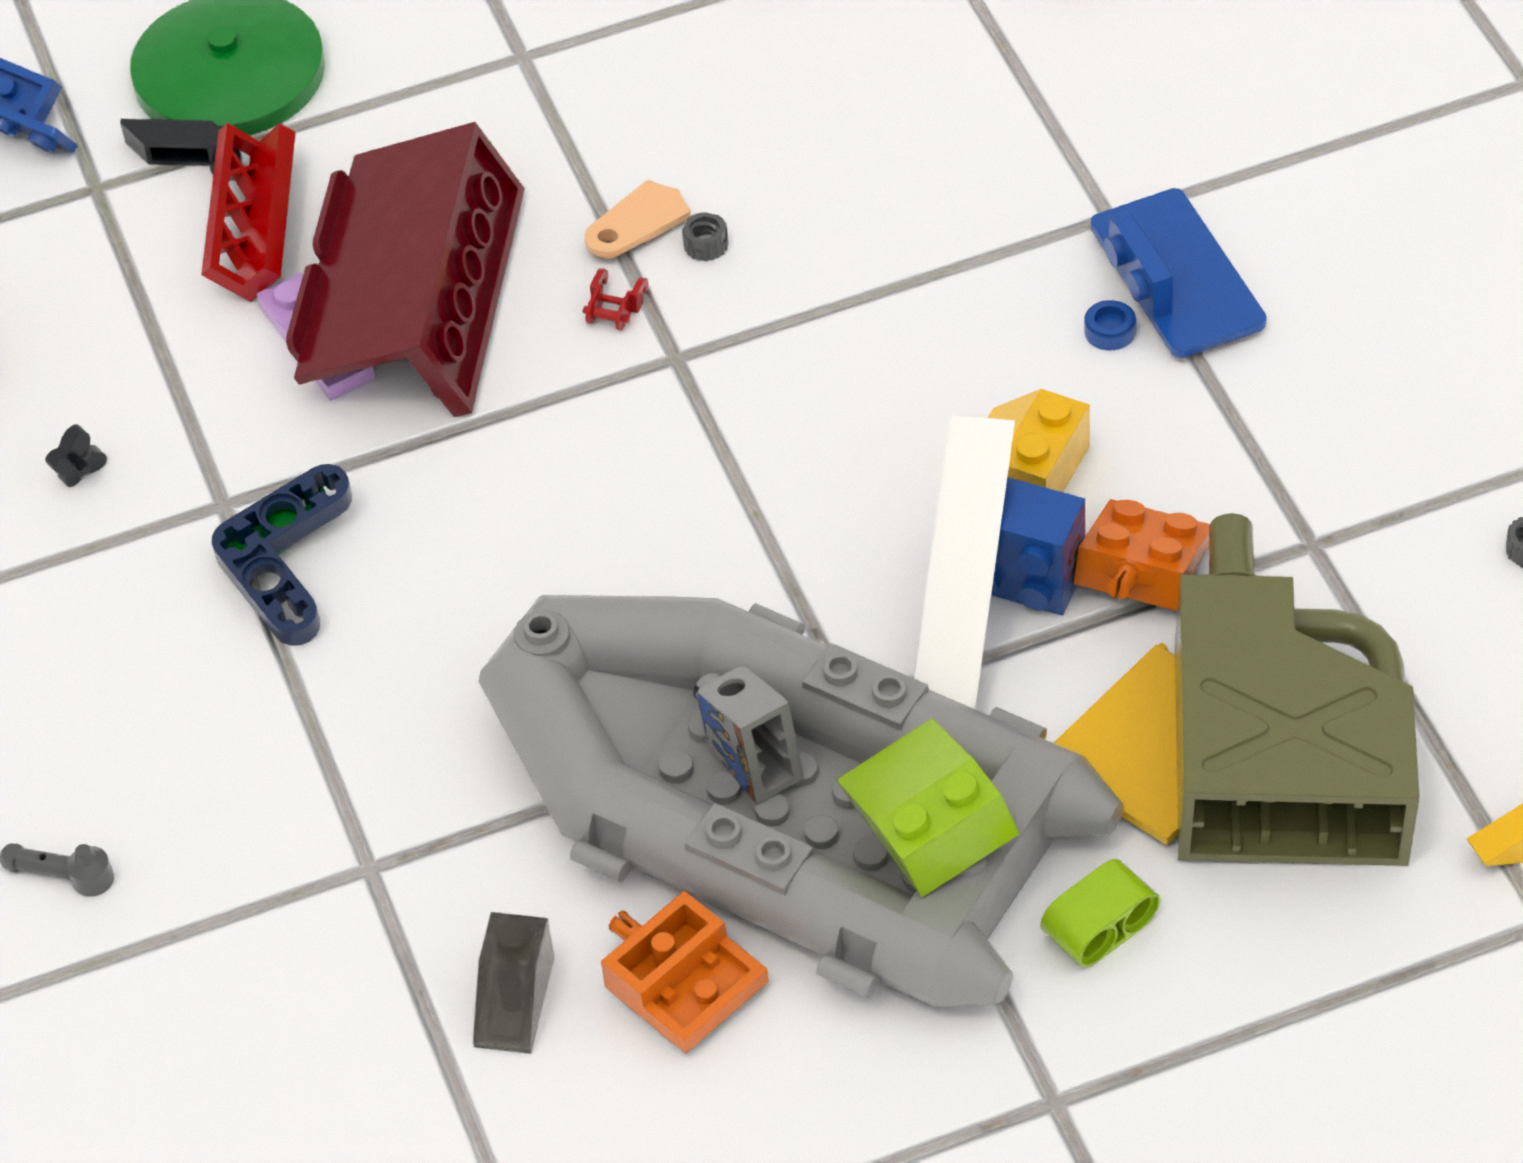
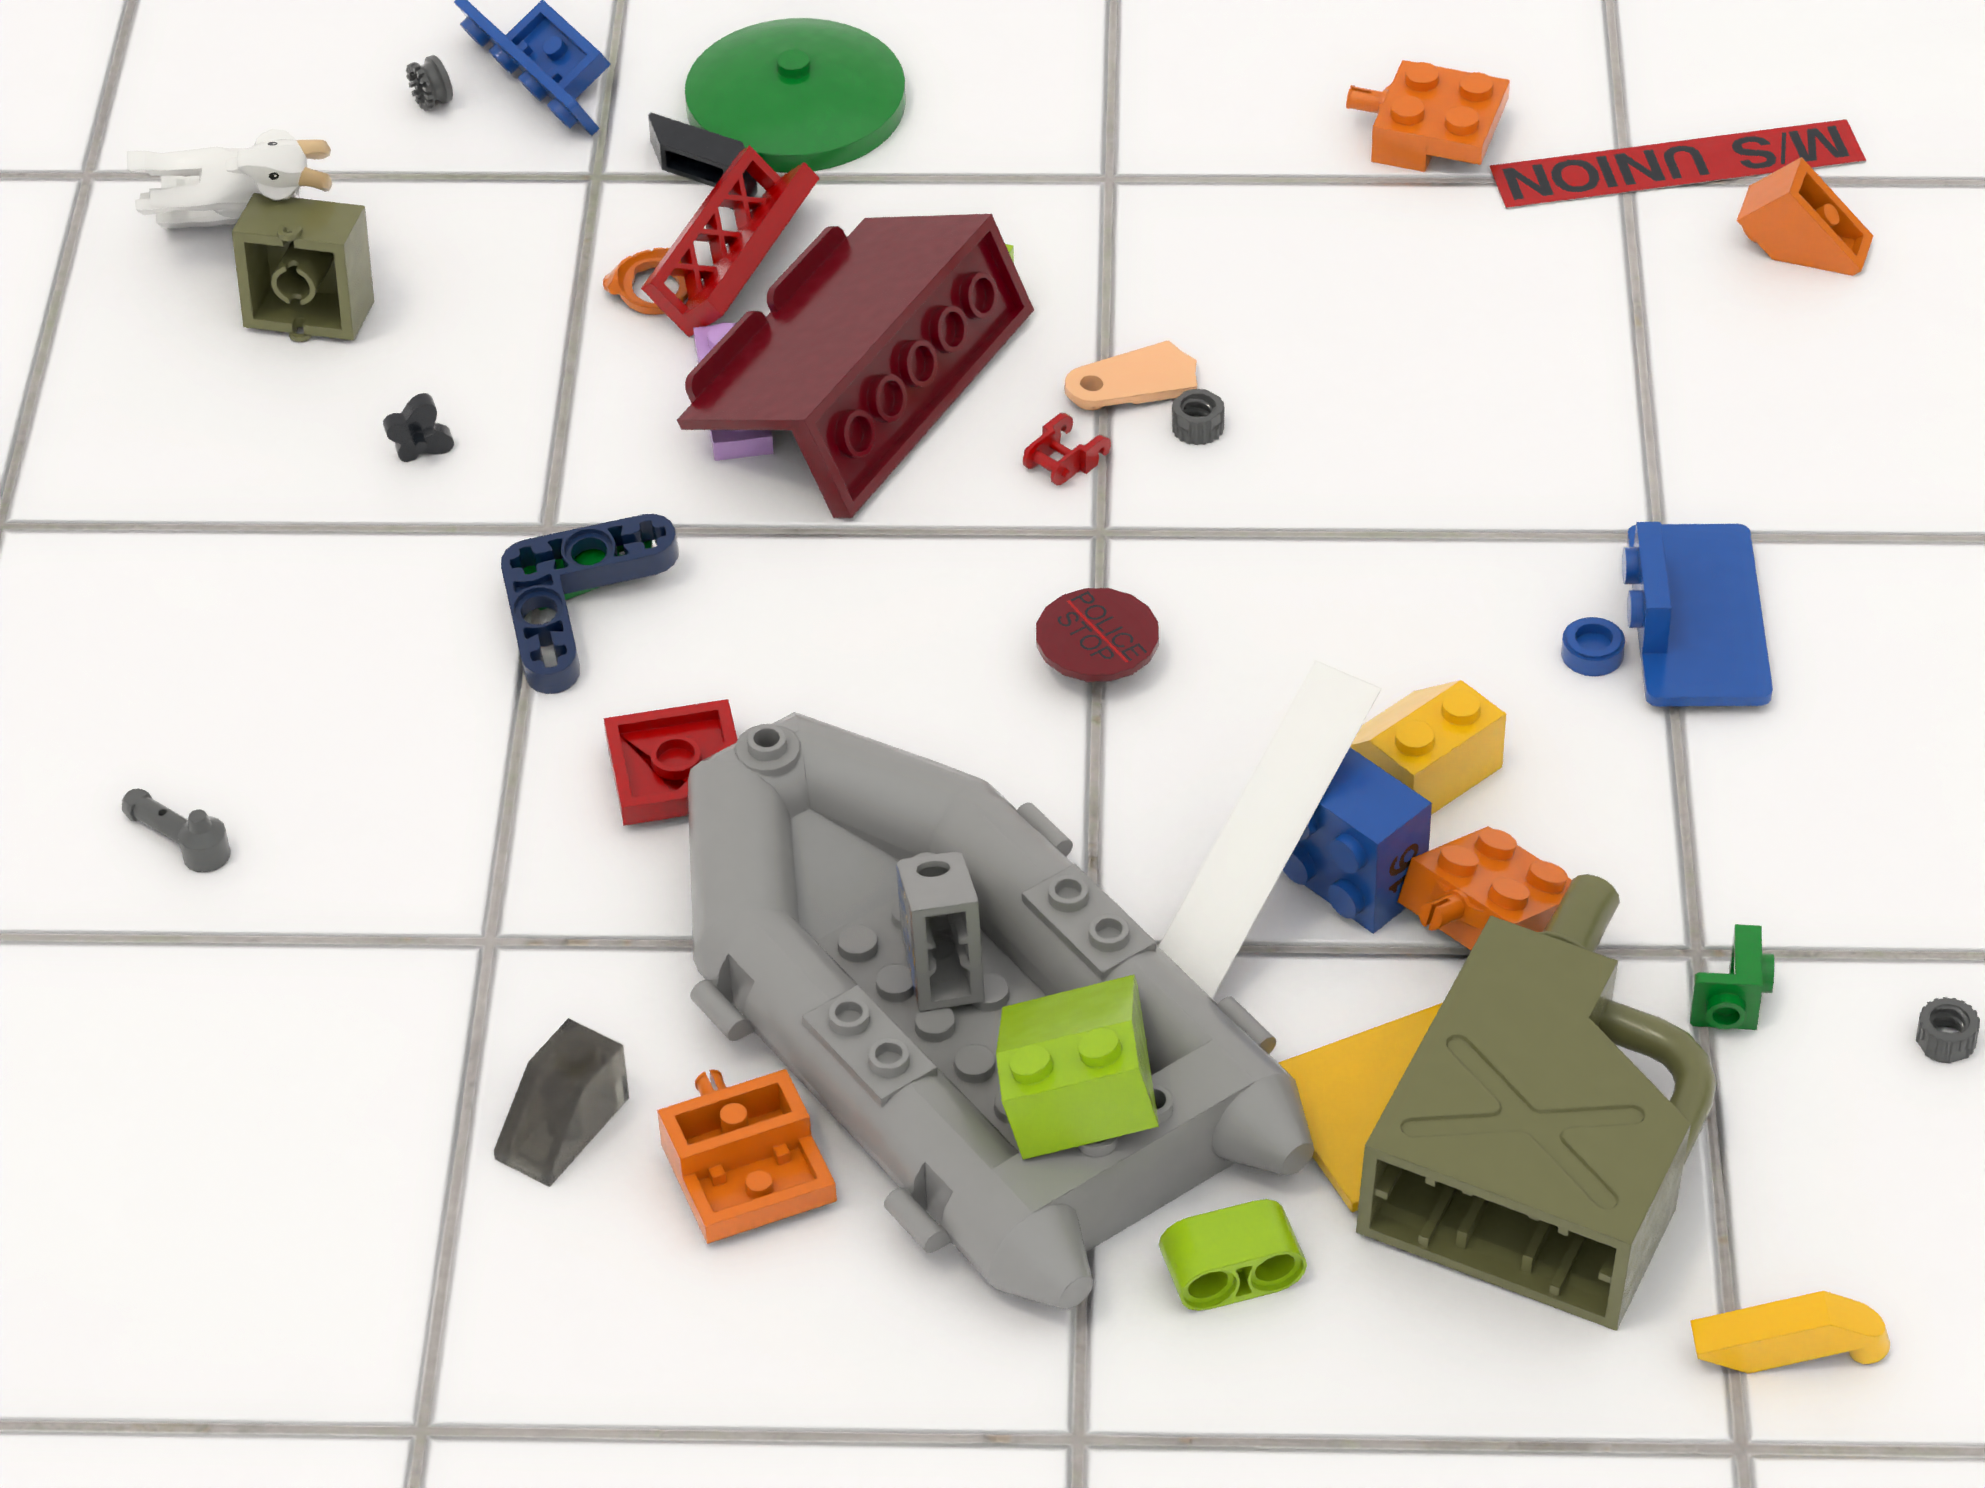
camera: 20 degrees right, 5 degrees down
(170, 272) = (622, 278): none -> orange piece
(437, 665) = (655, 754): none -> red plate
(728, 445) = (1097, 634): none -> dark red piece
(1368, 560) = (1735, 997): none -> green bracket

